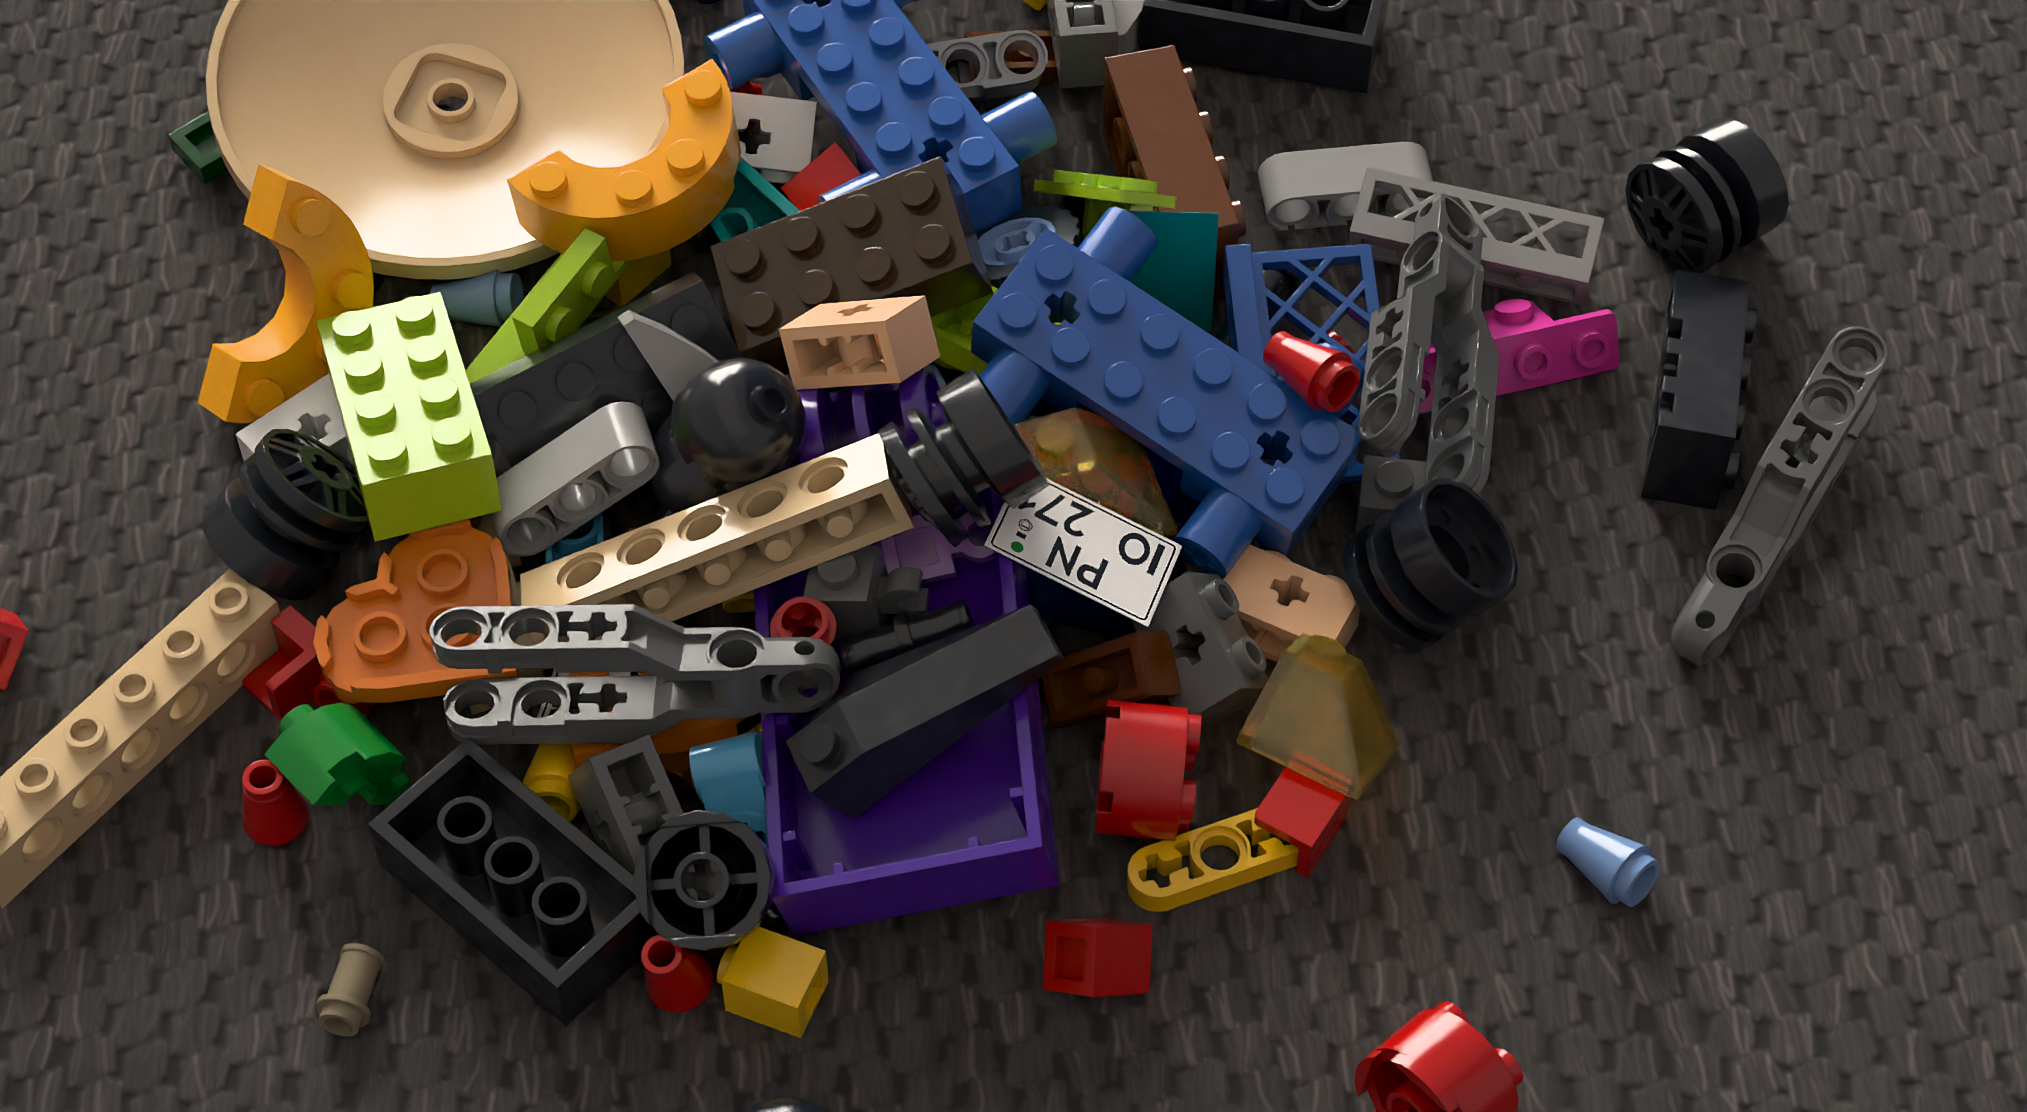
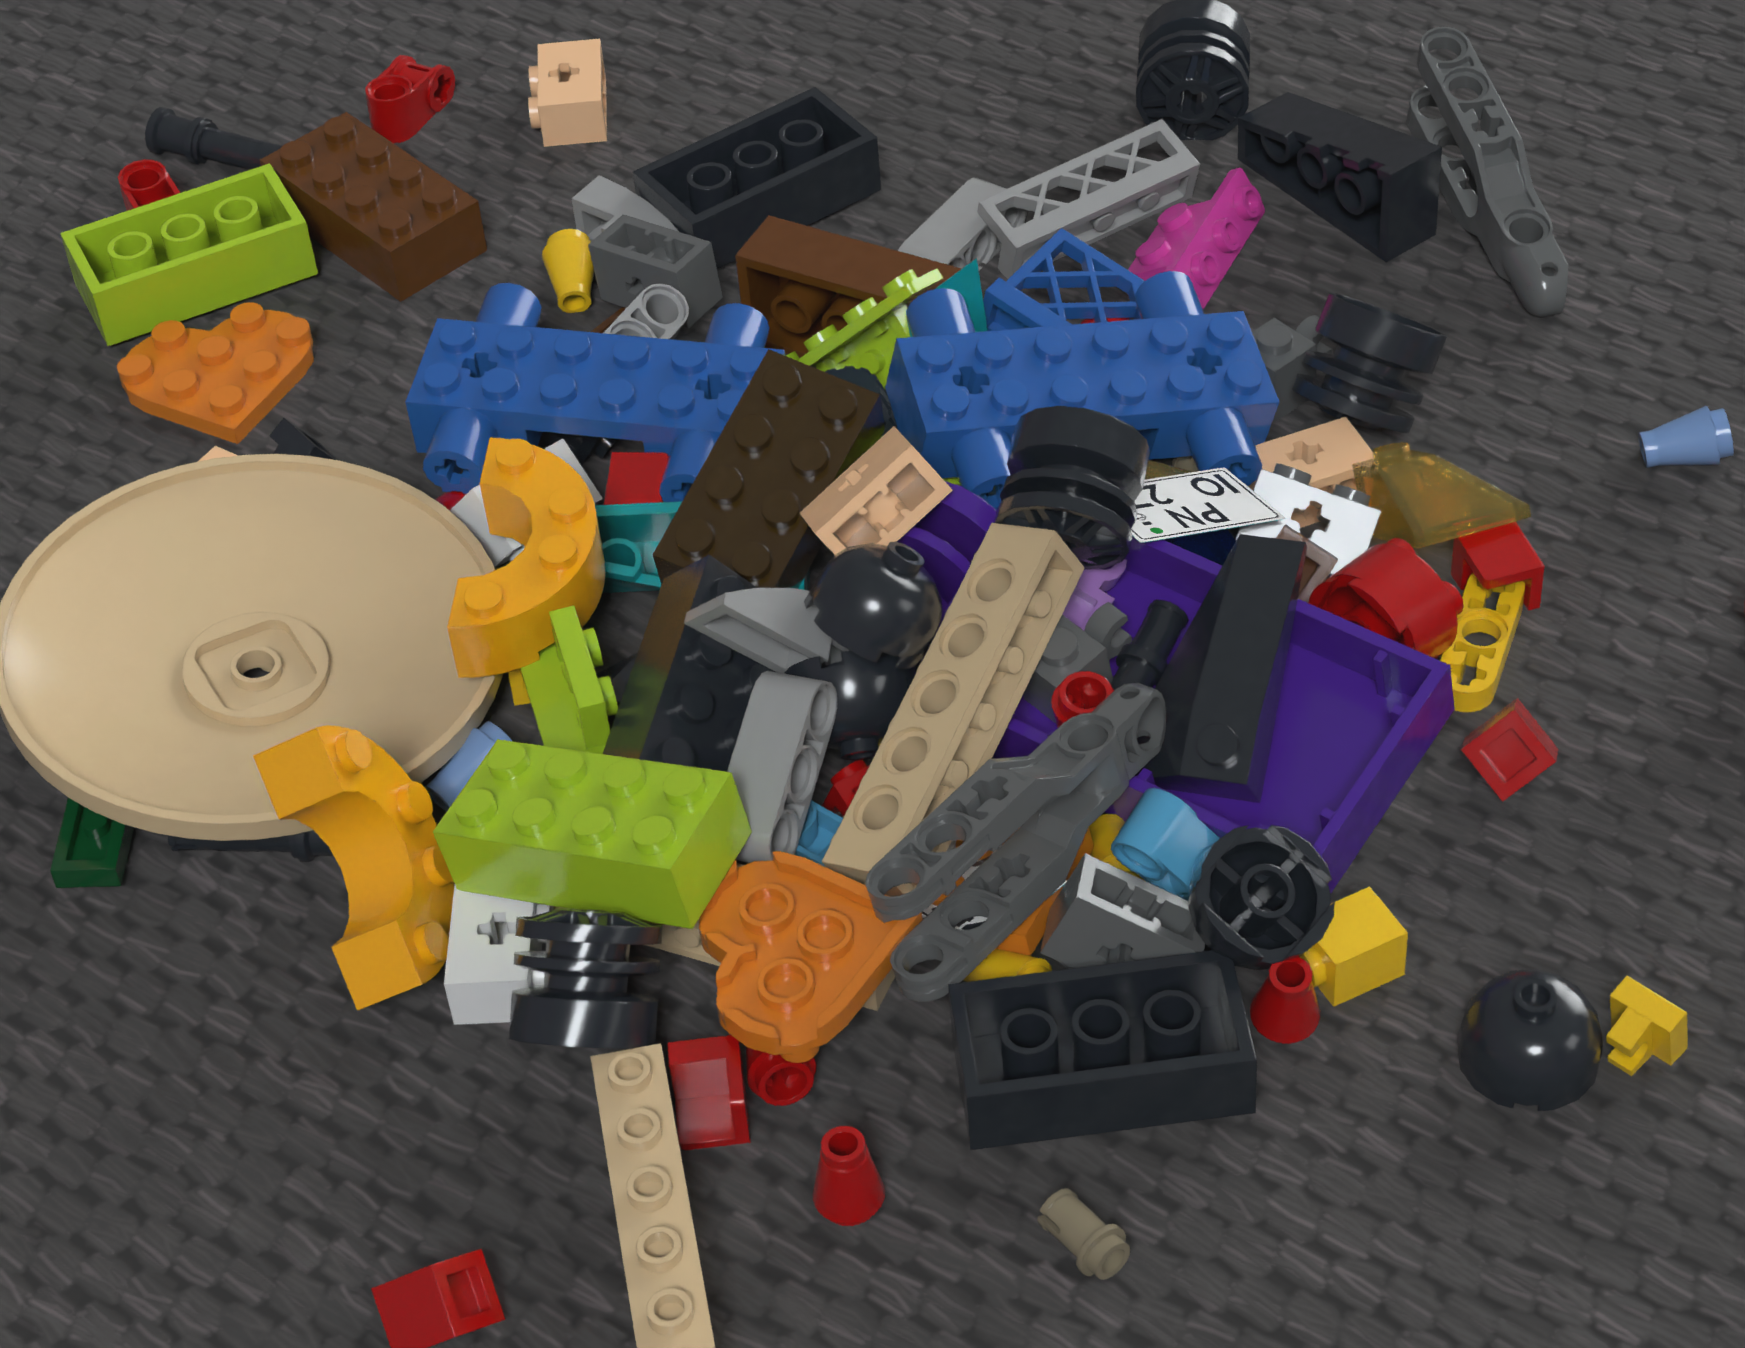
camera: 45 degrees left, 10 degrees down
(336, 755) = (862, 1085): green cylinder -> none
(1313, 371) = (1175, 289): red cone -> none
(1439, 306) = (1195, 244): dark grey piece -> none

